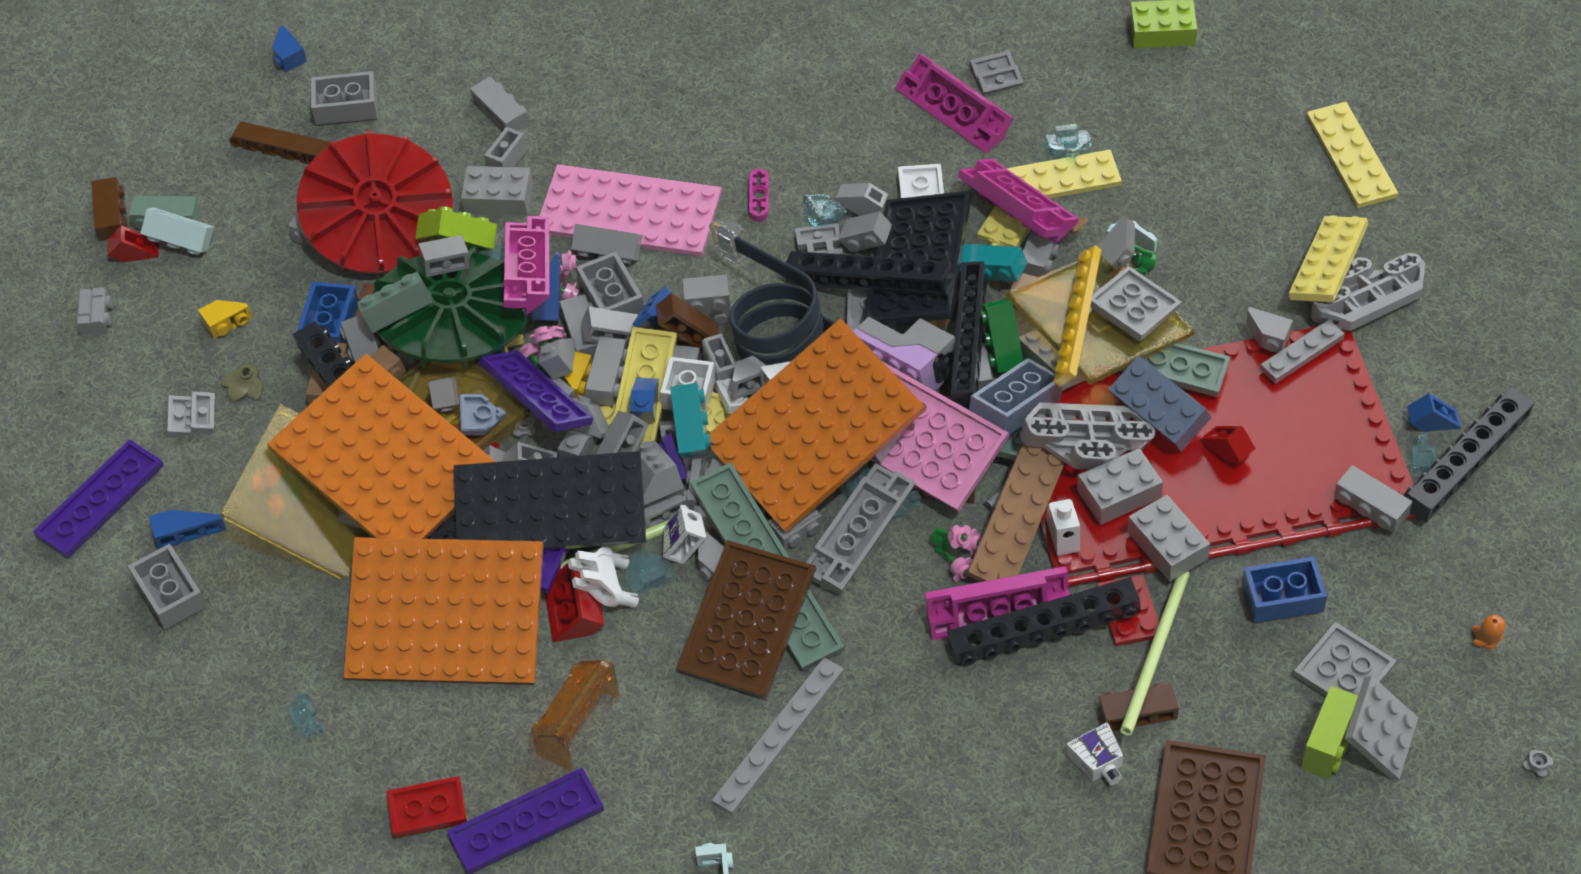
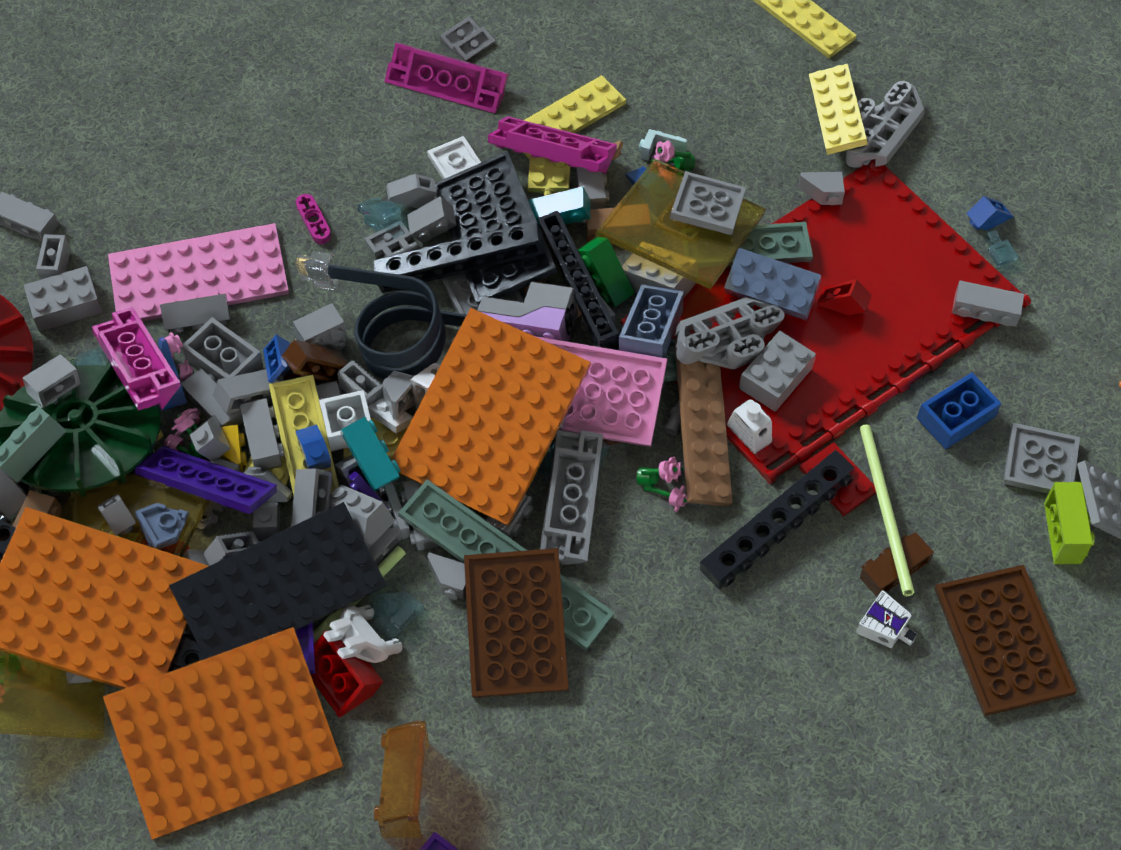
camera: 30 degrees left, 5 degrees up
(445, 224) = (37, 349): lime brick -> none
(683, 534) = (413, 564): white torso -> none
(777, 736) = (597, 724): light grey plate -> none
(987, 599) = (723, 518): dark pink slope -> none
(1068, 140) = (562, 78): clear light blue plate -> none
(1077, 315) = (671, 231): yellow plate -> none
(1119, 243) = (668, 156): light grey slope -> none
(1168, 538) = (843, 401): light grey brick -> none
(1302, 351) = (858, 196): light grey plate -> none
(1468, 453) = (1038, 236): black brick -> none

